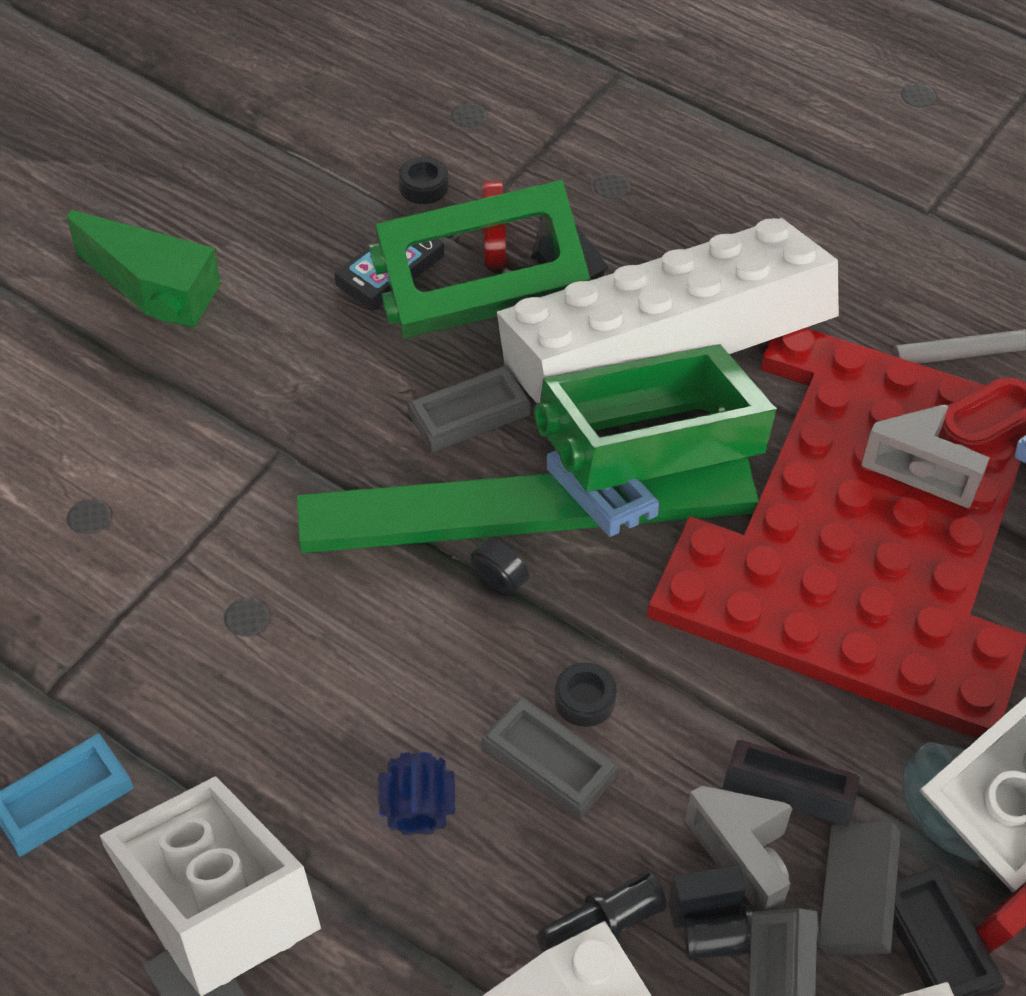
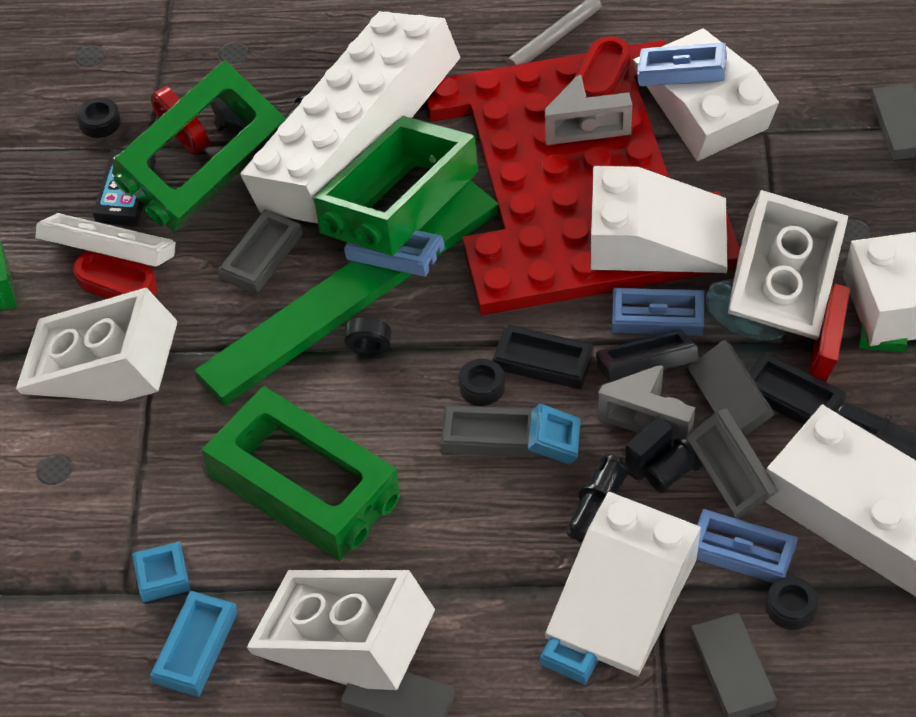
camera: 30 degrees left, 0 degrees up
(92, 693) = (161, 572): none -> dark azure tile
(225, 420) = (100, 350): none -> white slope
(301, 765) = (326, 526): none -> green piece
(305, 352) = (112, 275): none -> red tile
(324, 308) = (106, 239): none -> white tile
(416, 793) = (430, 497): clear blue gear -> none
(614, 807) = (554, 434): none -> dark azure tile
(677, 708) = (544, 356): none -> black tile
(843, 743) = (657, 318): none -> medium blue tile
(912, 630) = (655, 223): none -> white slope

